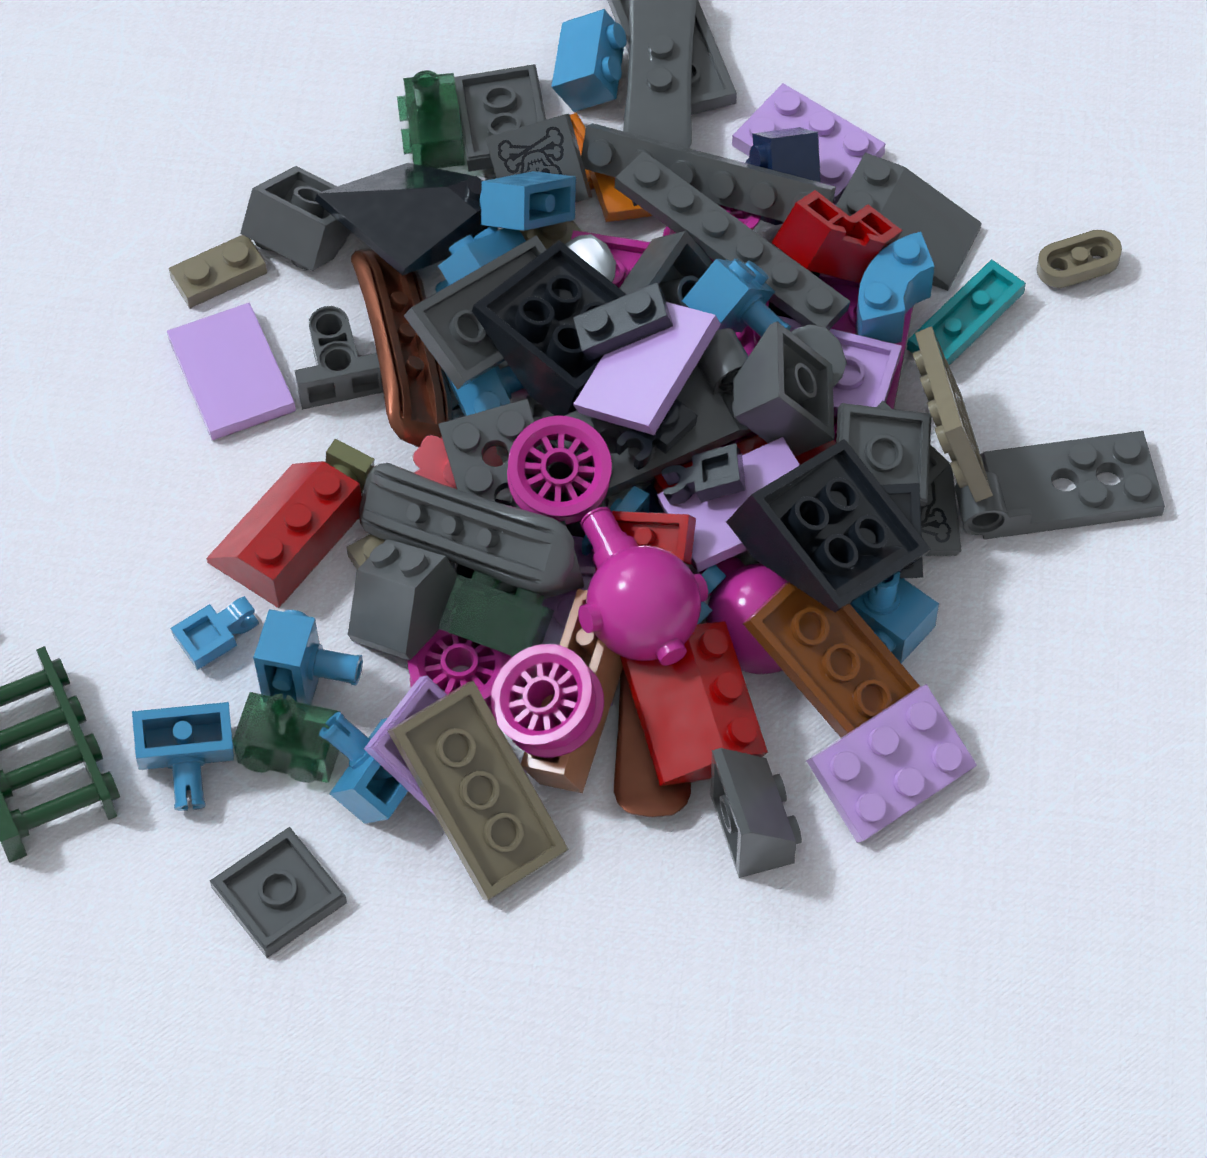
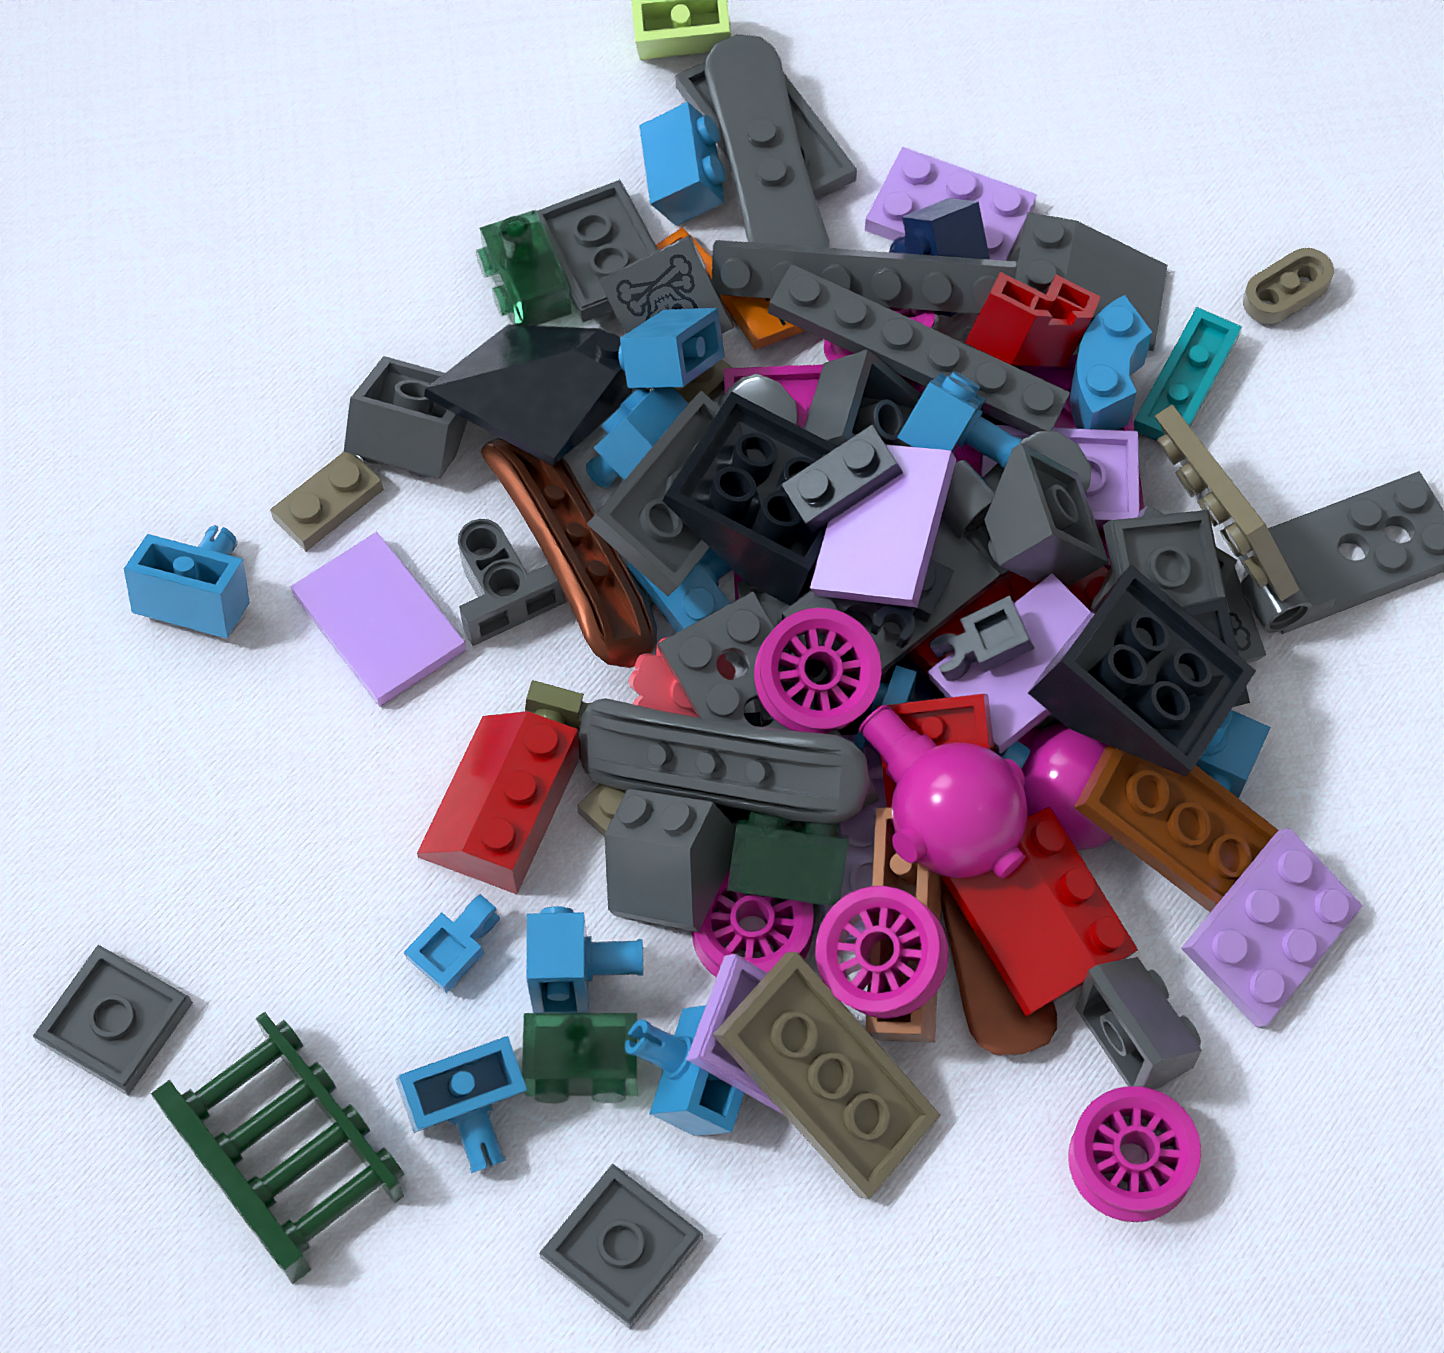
camera: 15 degrees left, 5 degrees up
(84, 310) = (189, 583): none -> dark azure brick
(732, 876) = (1162, 1113): none -> dark pink wheel

